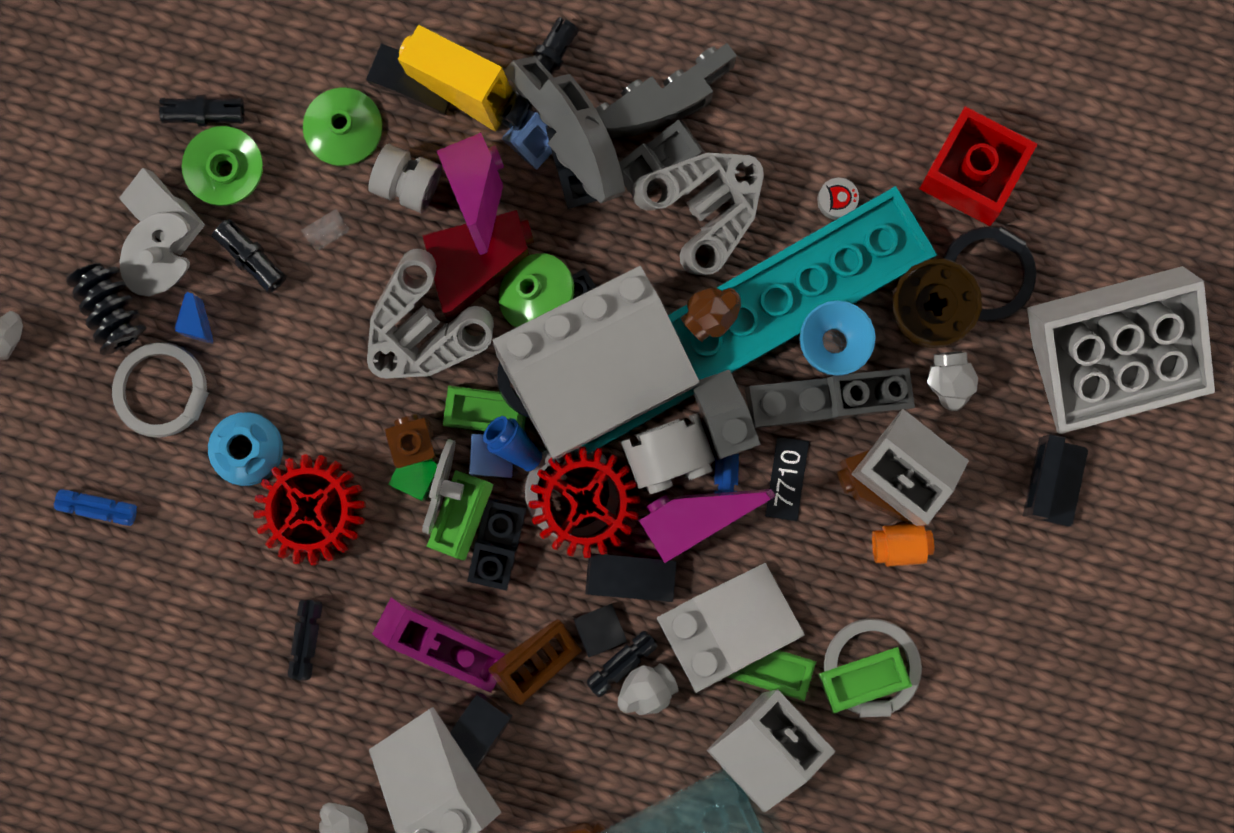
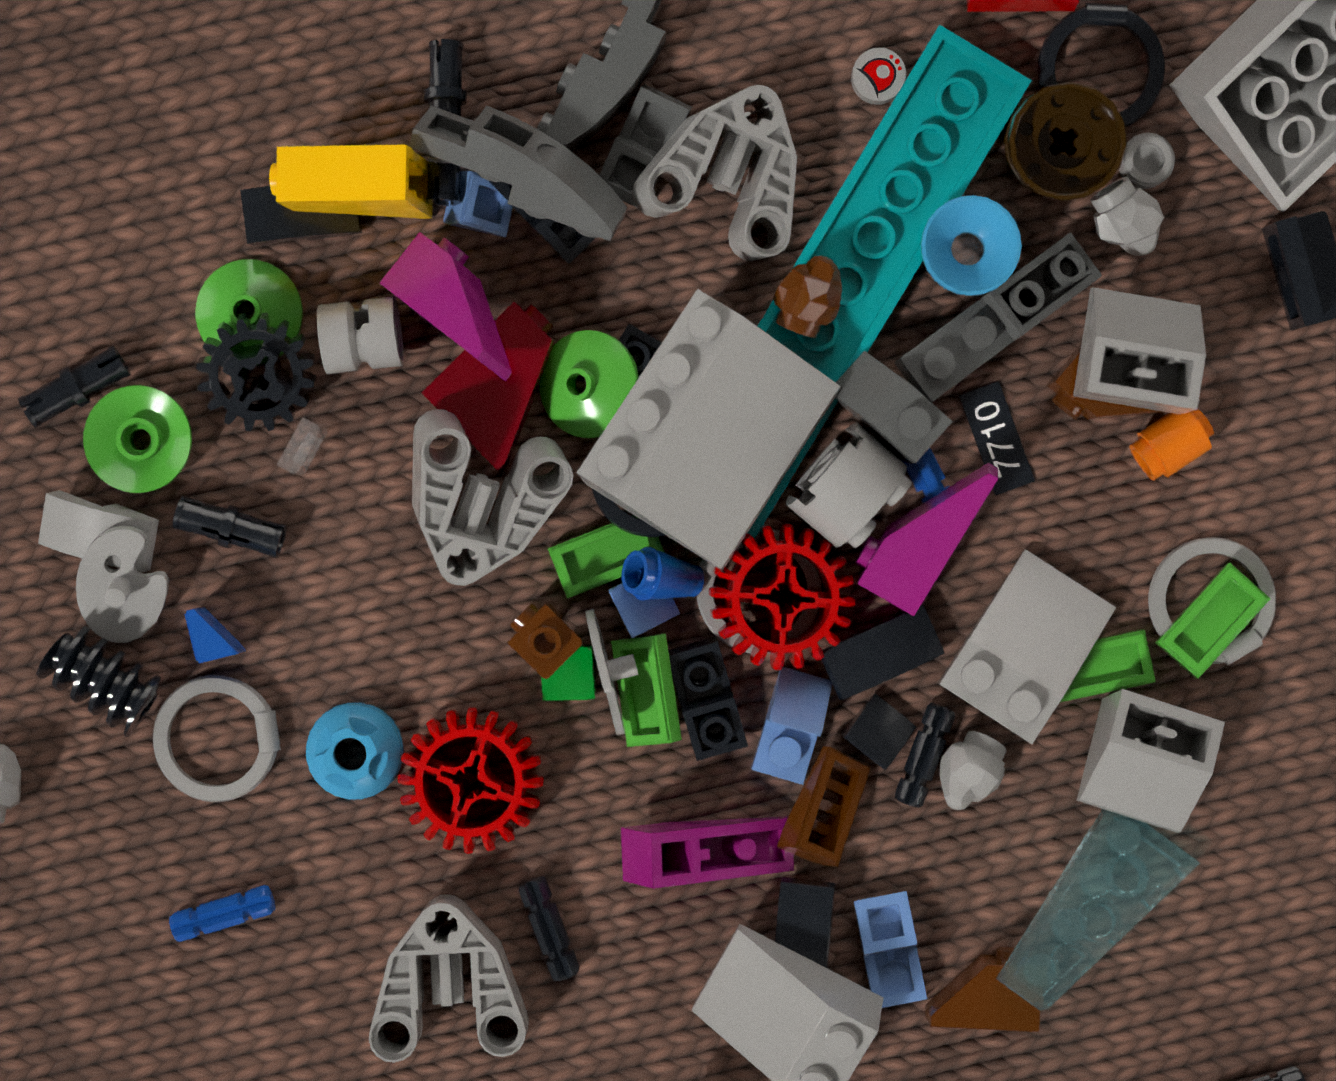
camera: 30 degrees left, 5 degrees up
(186, 621) = (491, 975): none -> light grey connector
(314, 152) = (238, 361): none -> black gear
(525, 783) = (890, 948): none -> medium blue slope
(544, 593) = (792, 725): none -> medium blue slope
(986, 350) = (1147, 160): none -> light grey tile

